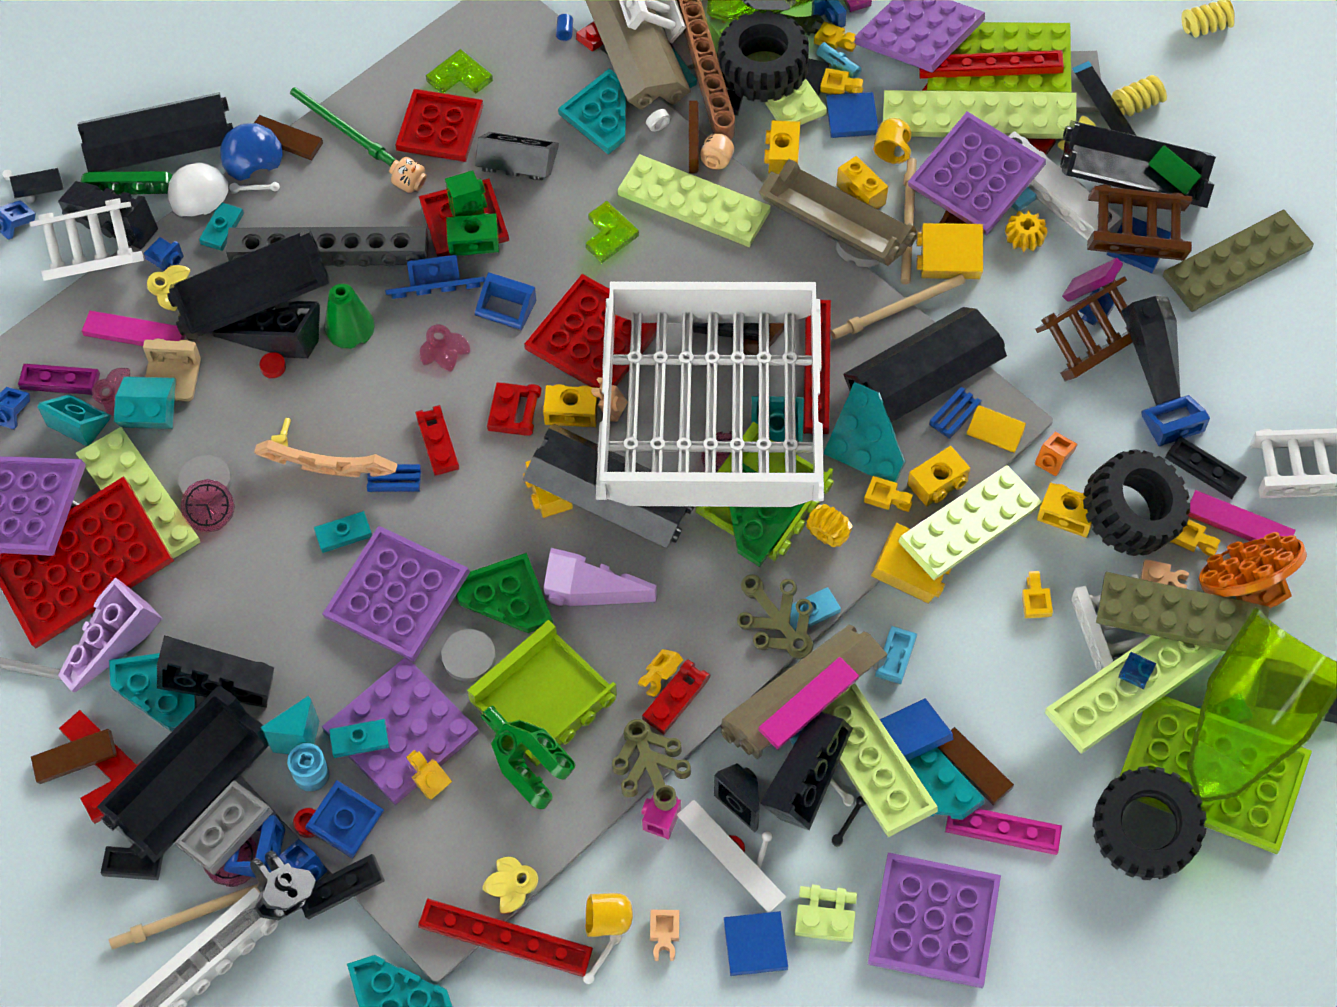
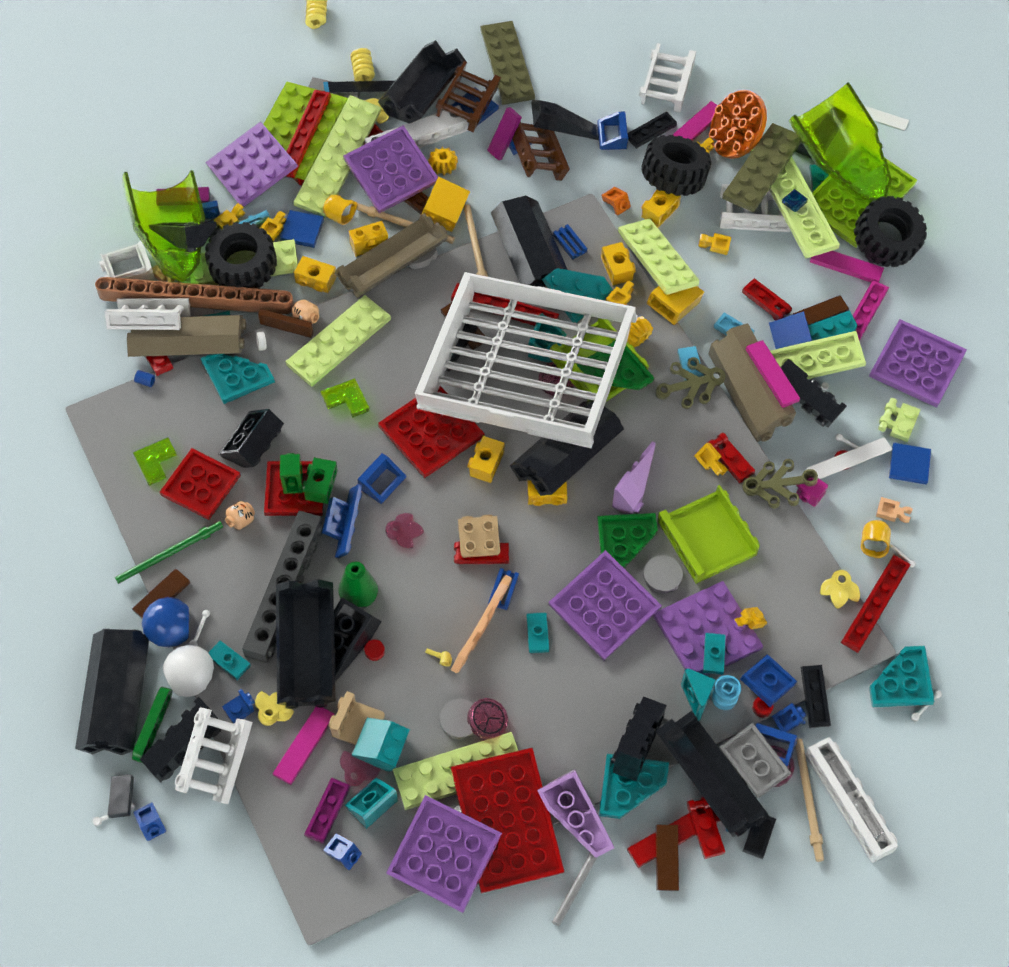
camera: 75 degrees left, 0 degrees up
(282, 889) = (815, 726): hinge -> none
(453, 424) = (479, 536): none -> tan bracket
(506, 406) = (469, 502): red plate -> none
(509, 746) = (748, 542): green piece -> none
(618, 401) = (494, 431): light nougat plate -> none
(738, 791) = (813, 439): black slope -> none
(837, 839) = (850, 400): black hinge -> none
(964, 685) = (766, 299): none -> red plate
(996, 428) = (591, 223): yellow slope -> none
(1075, 792) = (849, 265): none -> dark pink tile
(1161, 573) = (719, 177): light nougat plate -> none
(1175, 170) = (432, 66): green tile -> none

